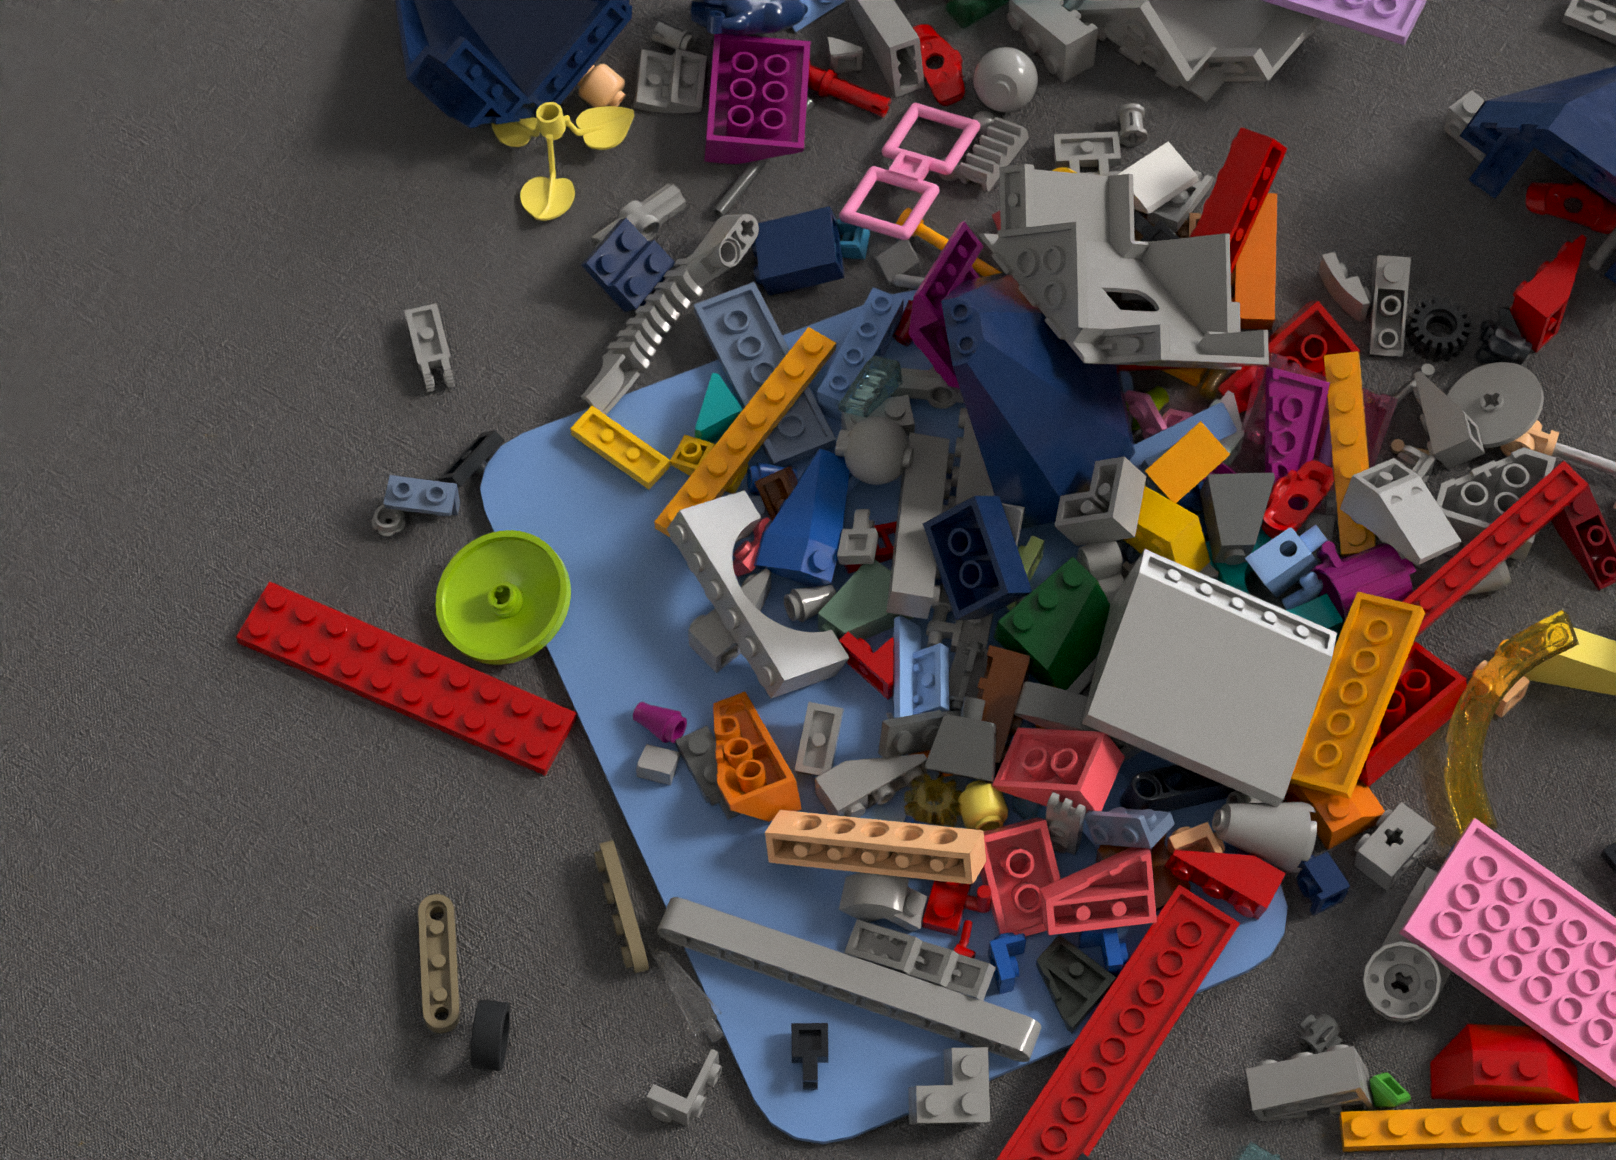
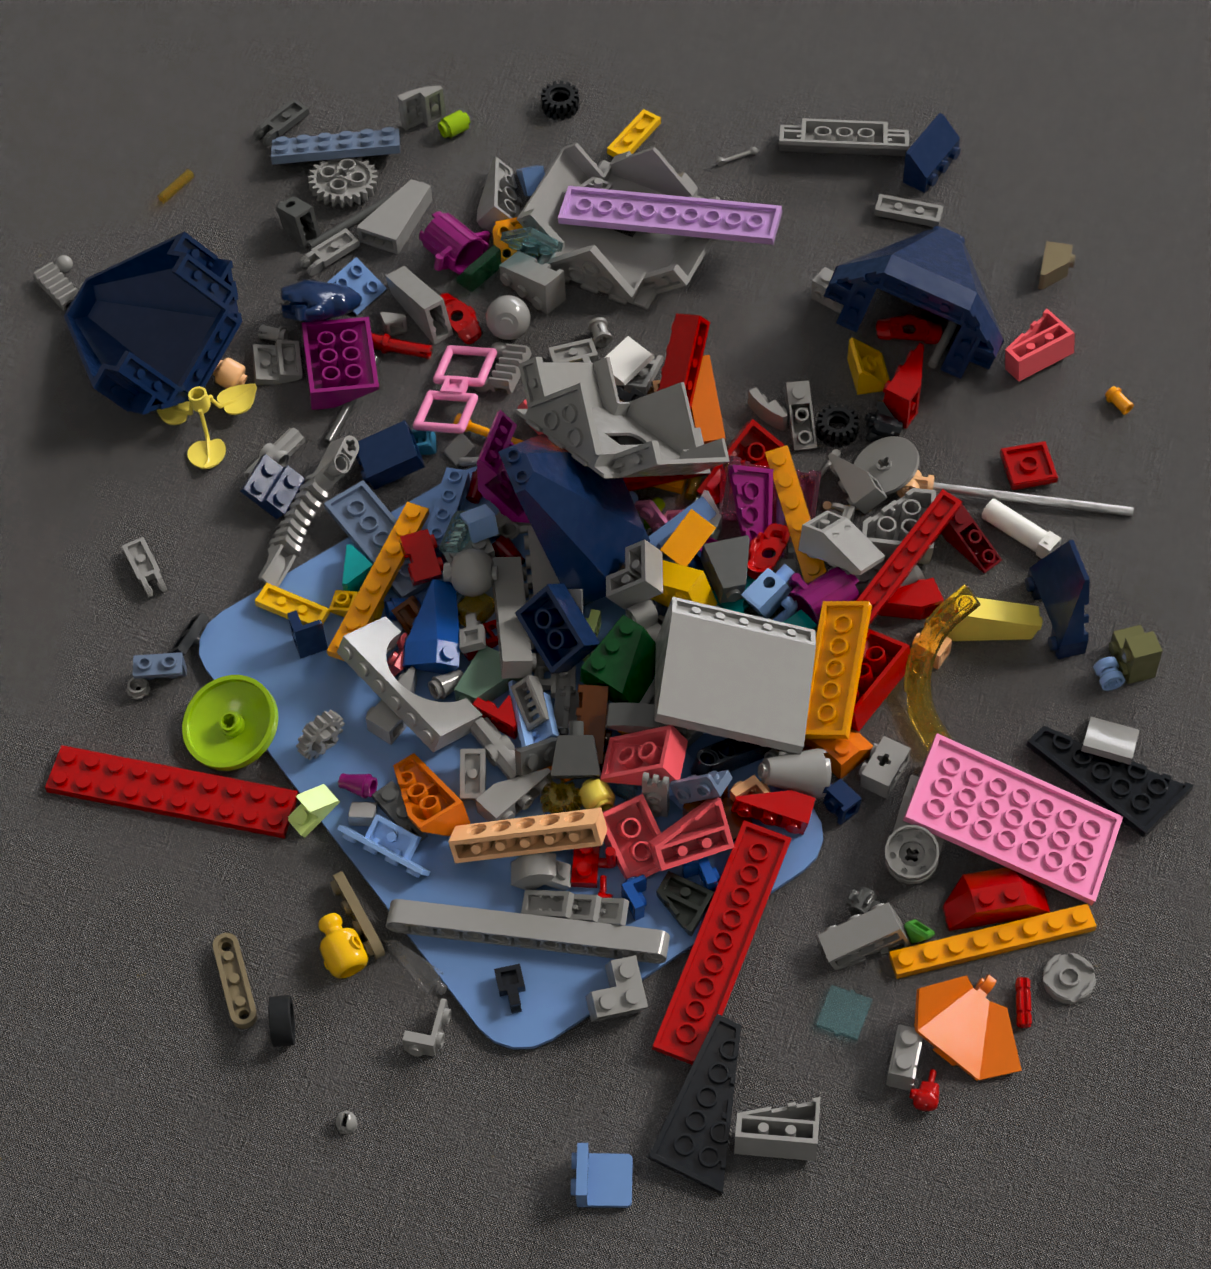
camera: 10 degrees left, 5 degrees down
(591, 948) = (341, 947): none -> yellow piece
(593, 742) = (313, 809): none -> yellowish green slope
(621, 642) = (320, 734): none -> light grey gear
(632, 499) = (307, 638): none -> dark blue panel
(687, 812) = (391, 840): none -> light blue bracket
(812, 408) = (420, 550): none -> red brick
(862, 709) = (498, 748): none -> light grey piece
(880, 499) = (481, 605): none -> clear yellow brick
(902, 381) = (480, 523): none -> light blue panel
(909, 644) = (520, 694): none -> light grey slope
(931, 421) = (505, 548): none -> dark red cone
(1491, 612) = (914, 600): none -> red slope
(1500, 252) = (866, 367): none -> yellow slope

